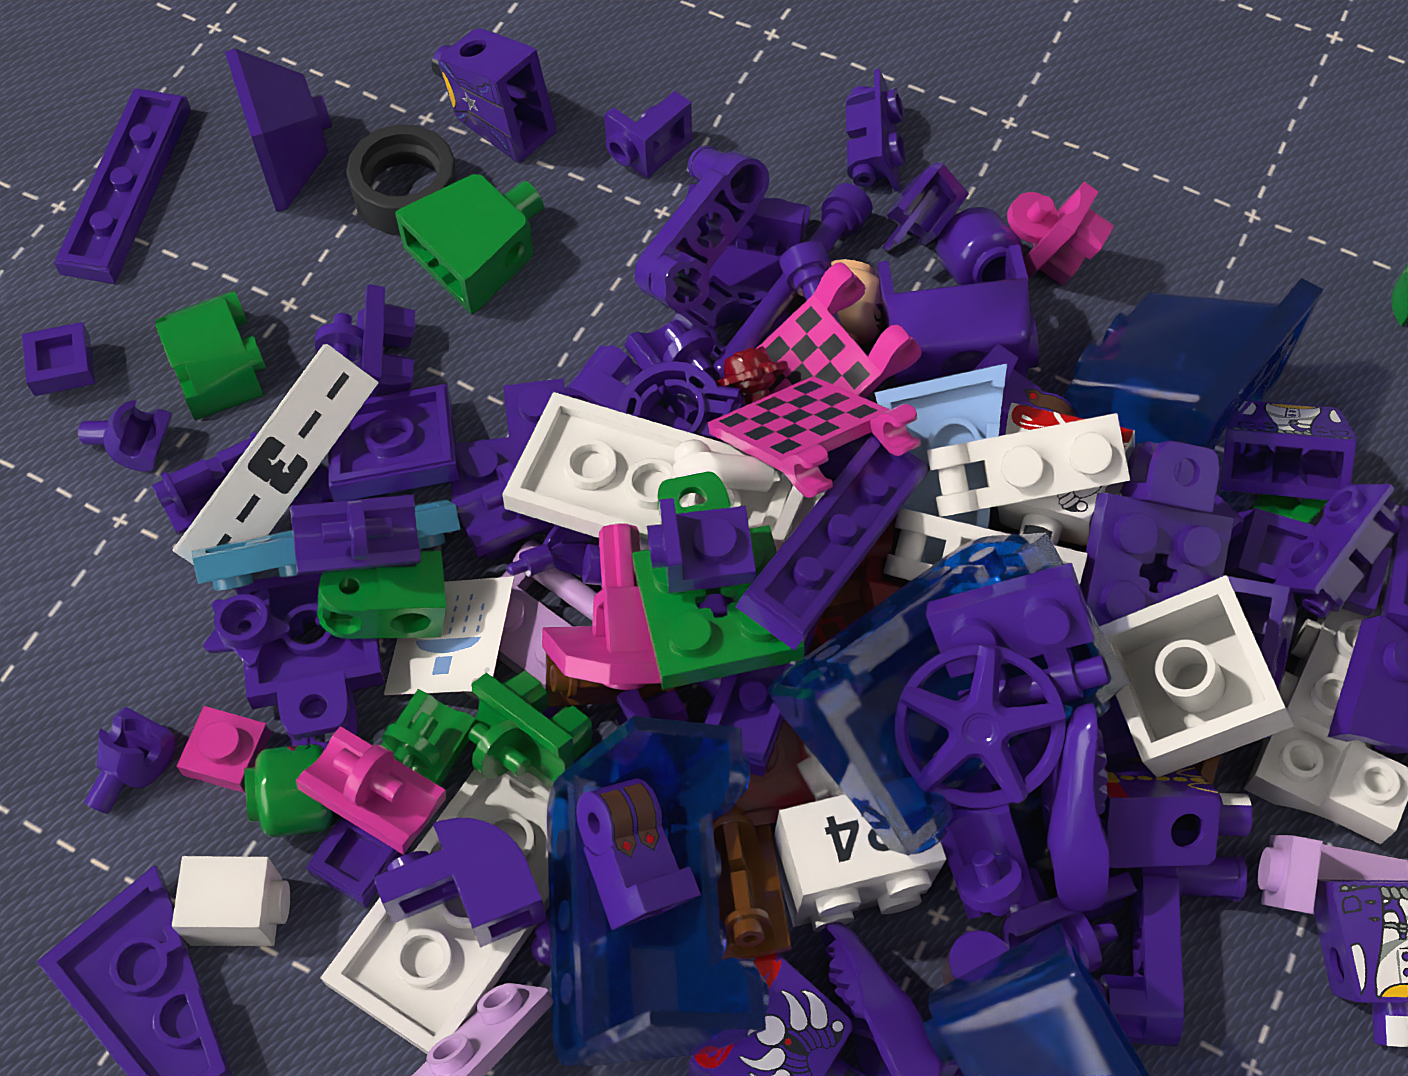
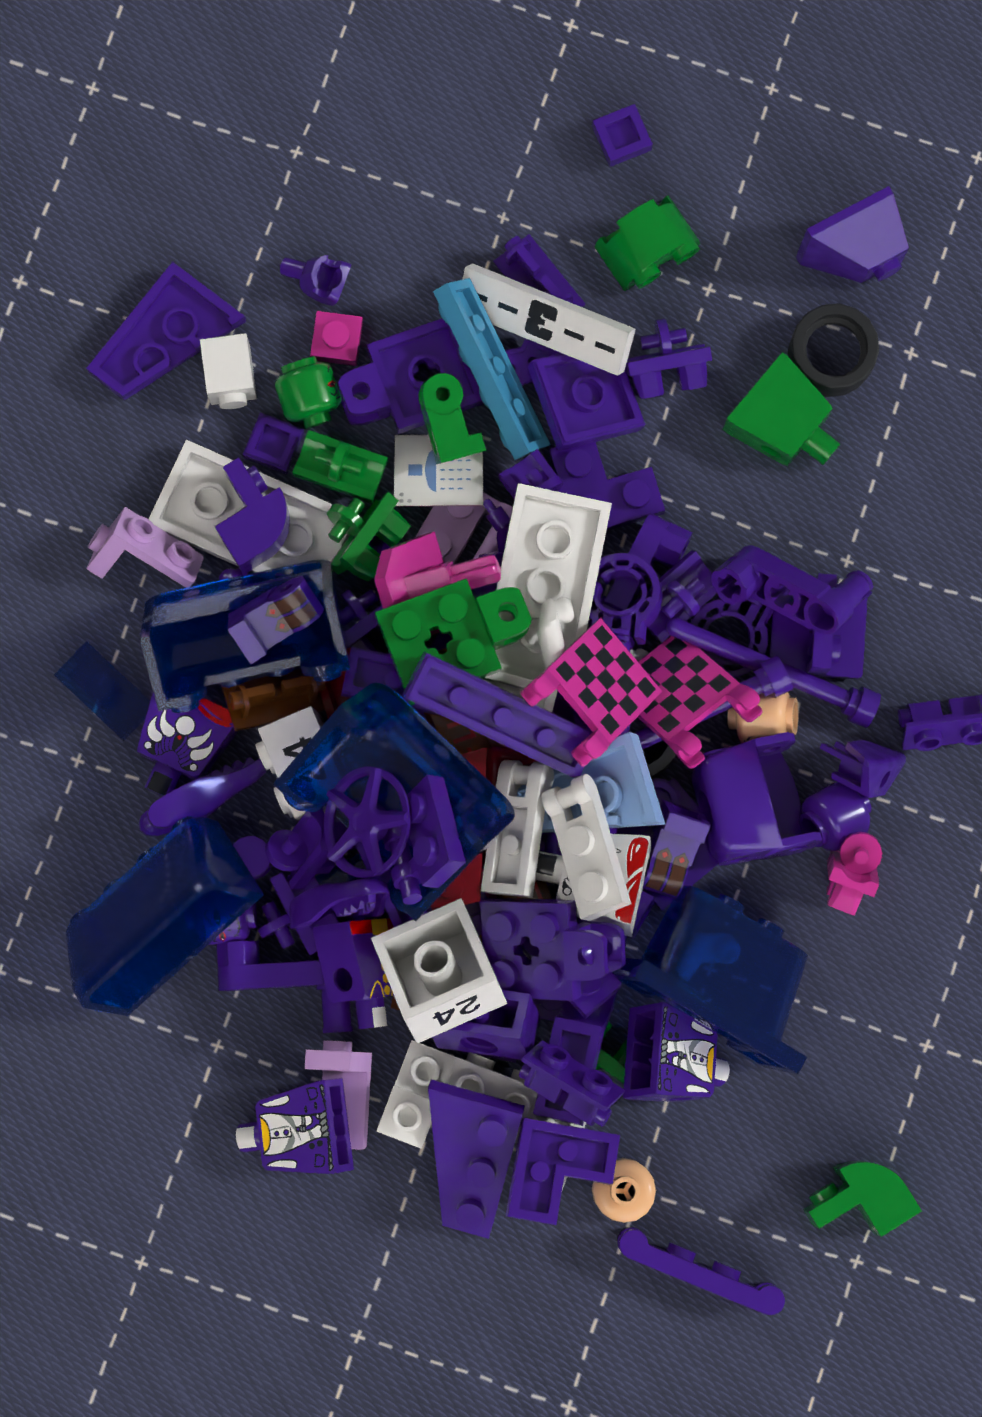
camera: 80 degrees right, 20 degrees up
(123, 186) = (798, 133): dark purple tile -> none
(129, 435) = (566, 205): dark purple piece -> none
(235, 612) = (421, 317): dark purple plate -> none
(355, 534) = (476, 389): dark purple hips -> none
(372, 789) = (296, 443): dark pink hips -> none
(497, 91) = (927, 403): dark purple torso -> none
(654, 138) = (912, 544): dark purple bracket -> none
(702, 547) = (463, 621): dark purple bracket -> none
(751, 373) = (663, 646): dark red plant -> none

